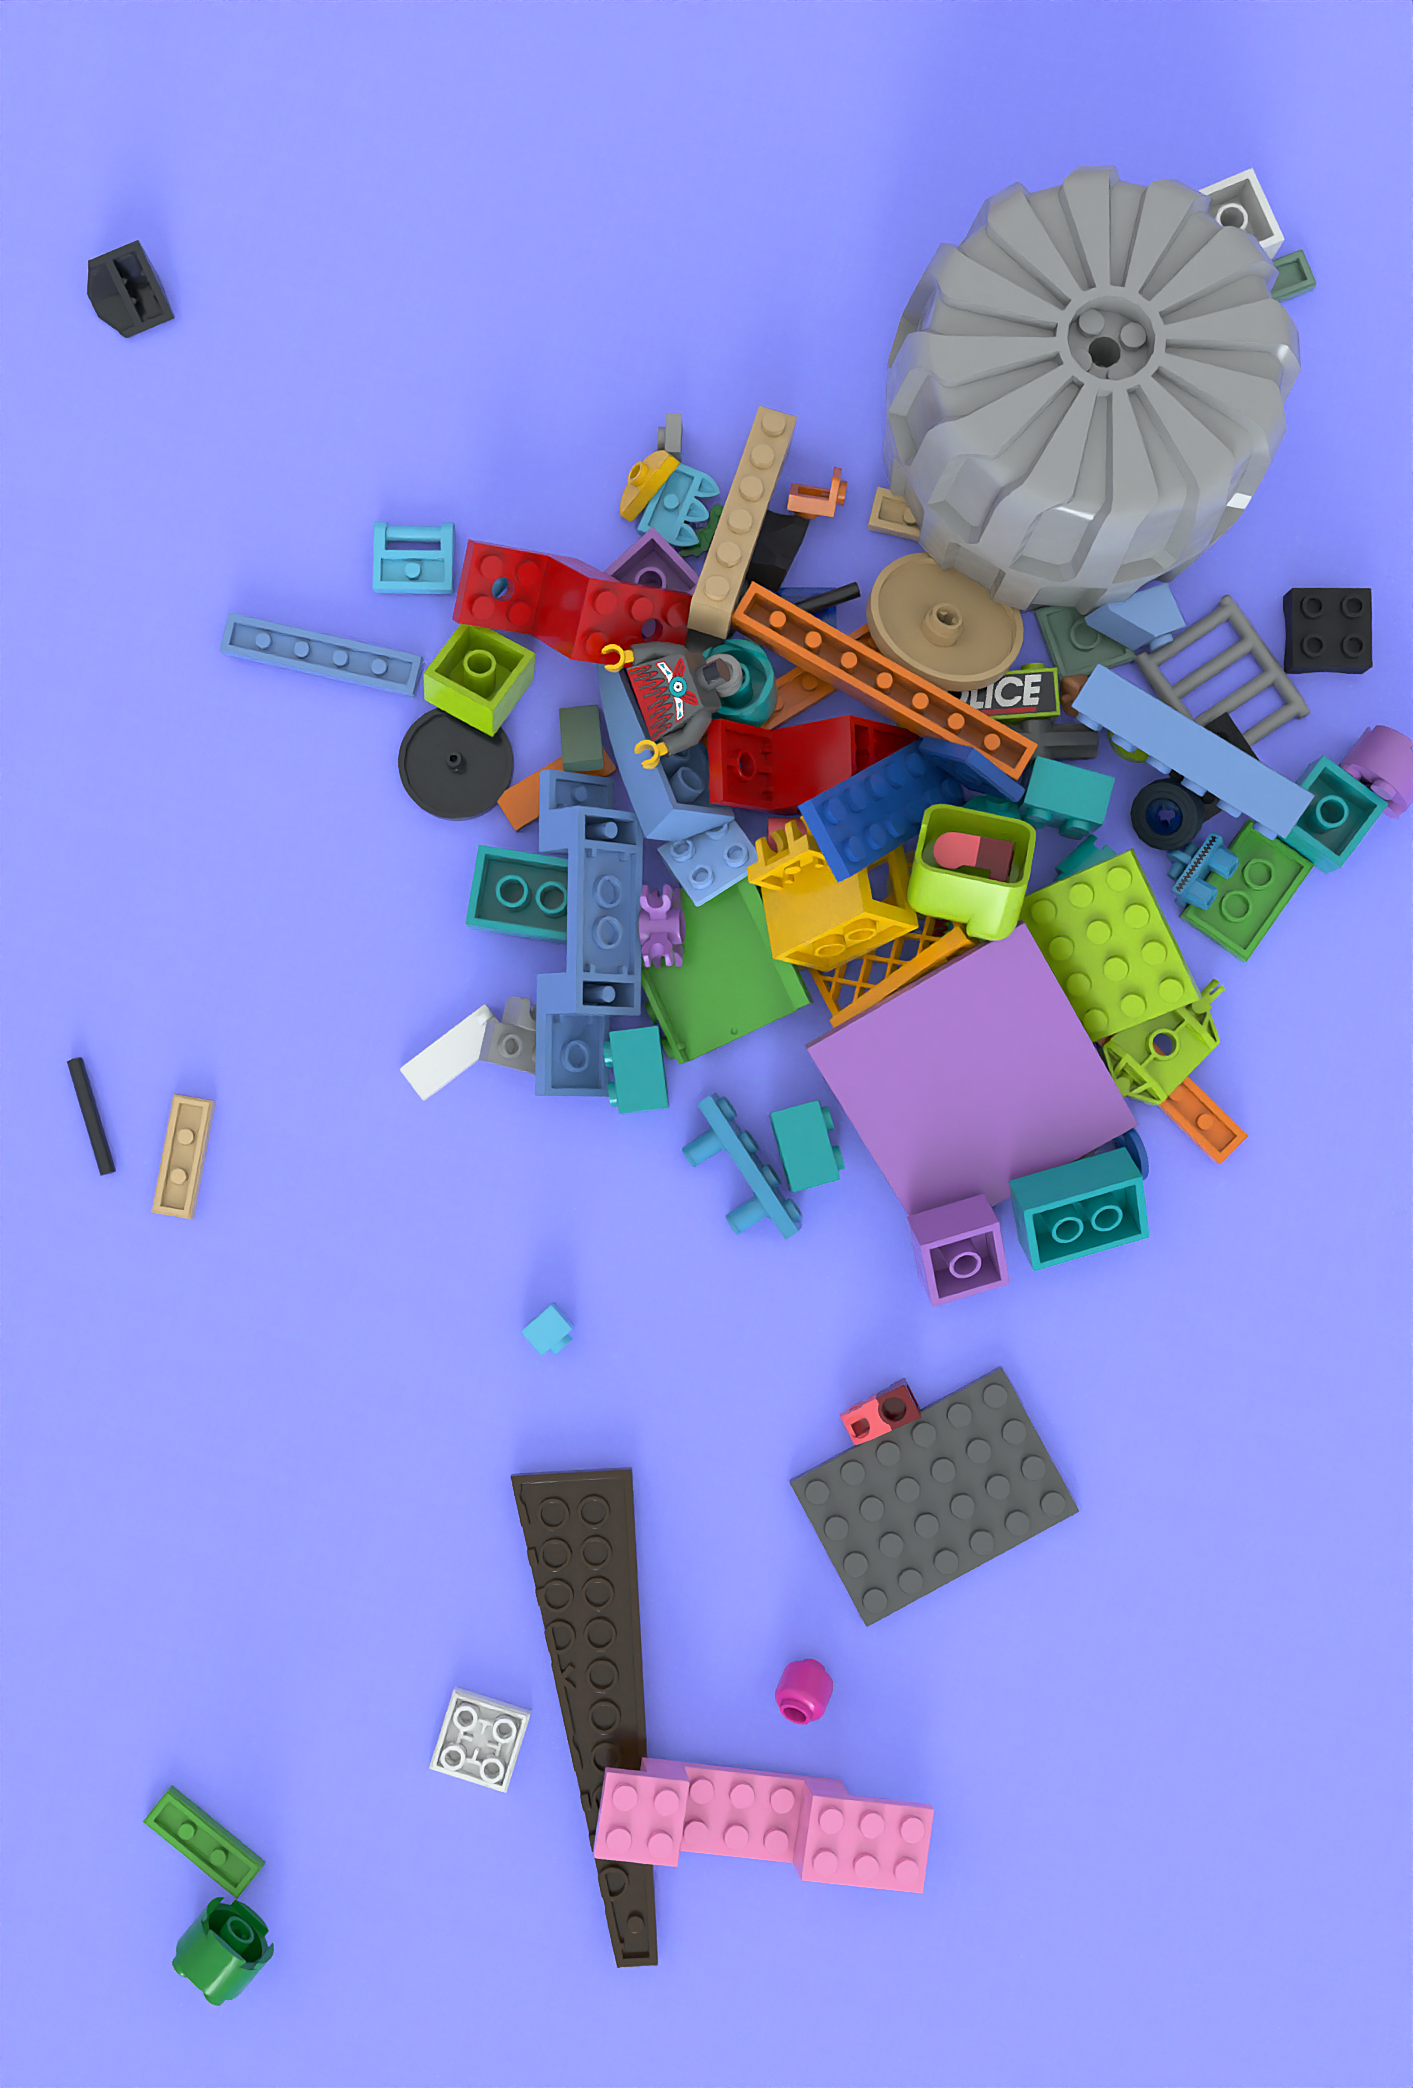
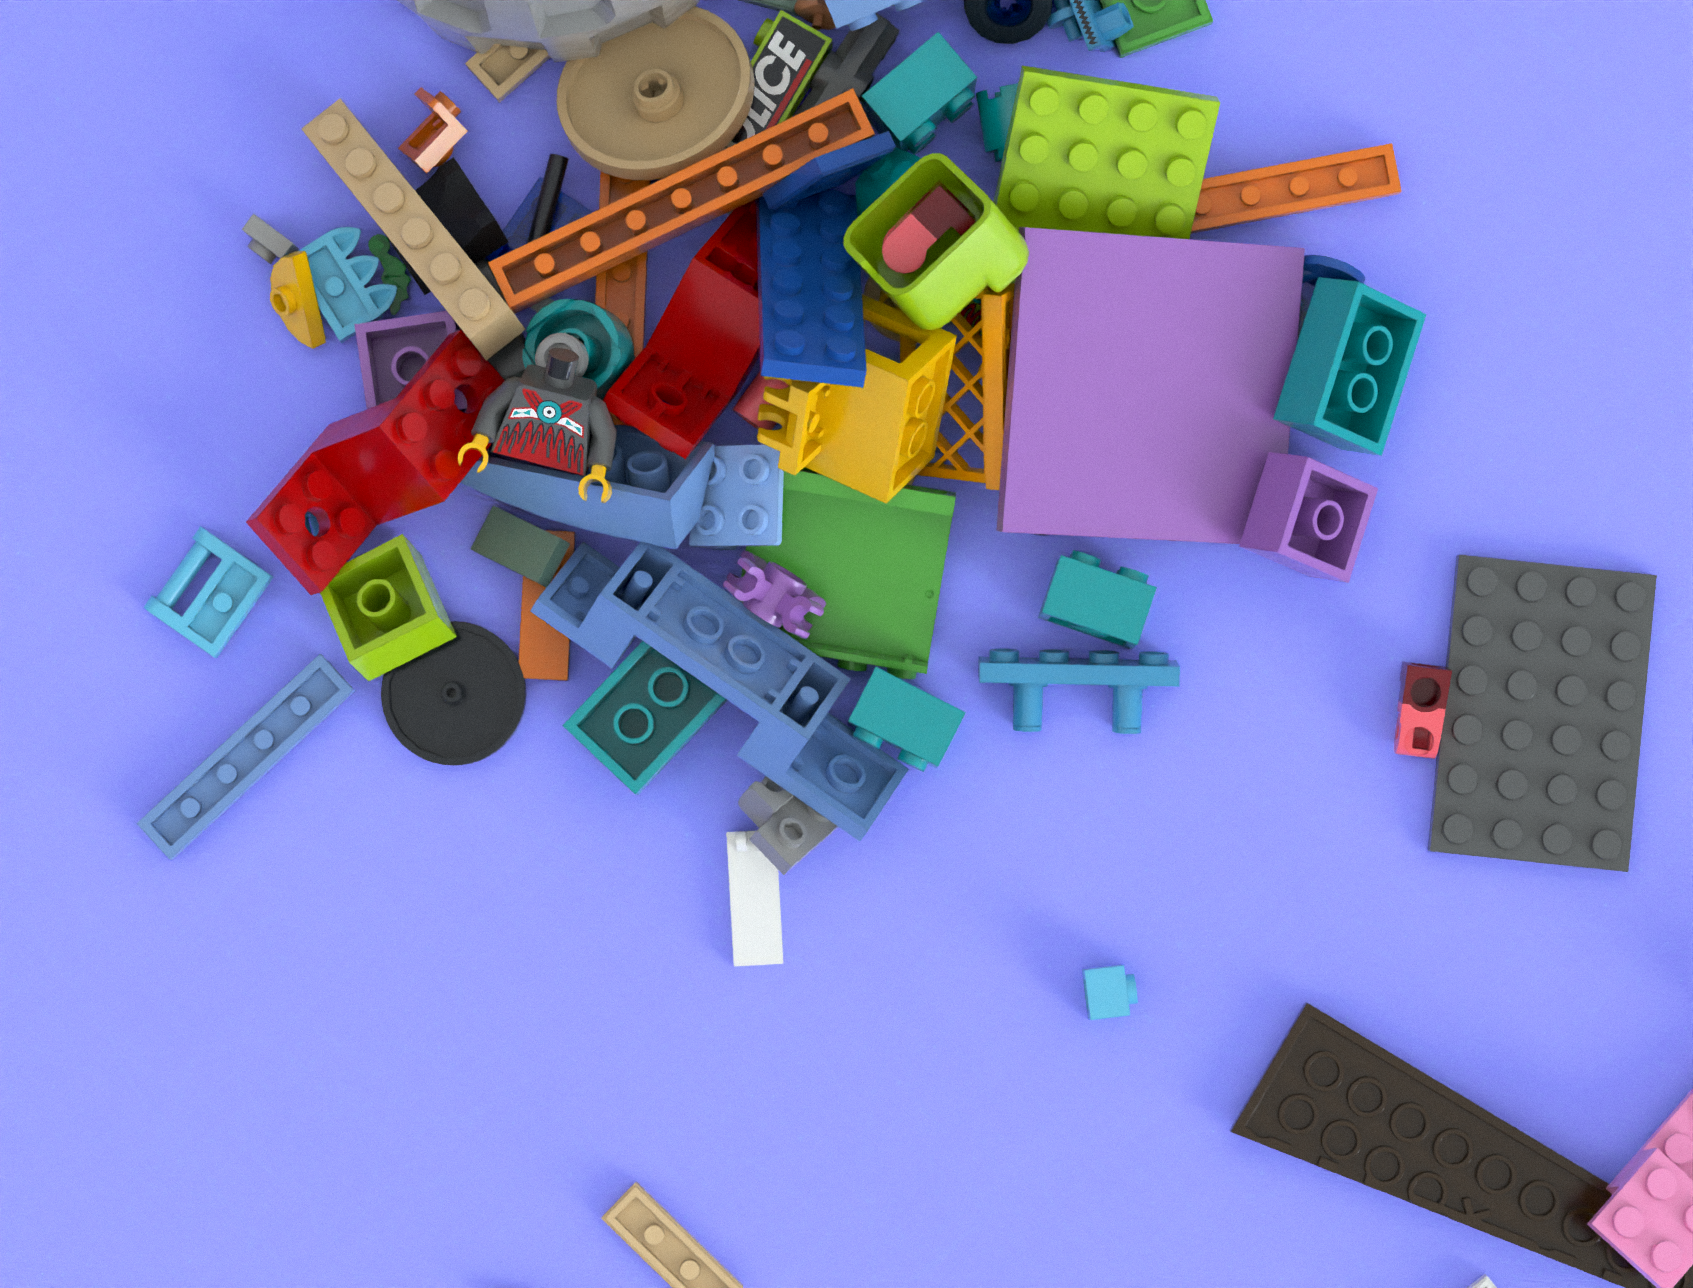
camera: 55 degrees left, 0 degrees up
(803, 1691) = (1649, 978): dark pink head -> none
(1153, 1077) = (1253, 207): lime plate -> none

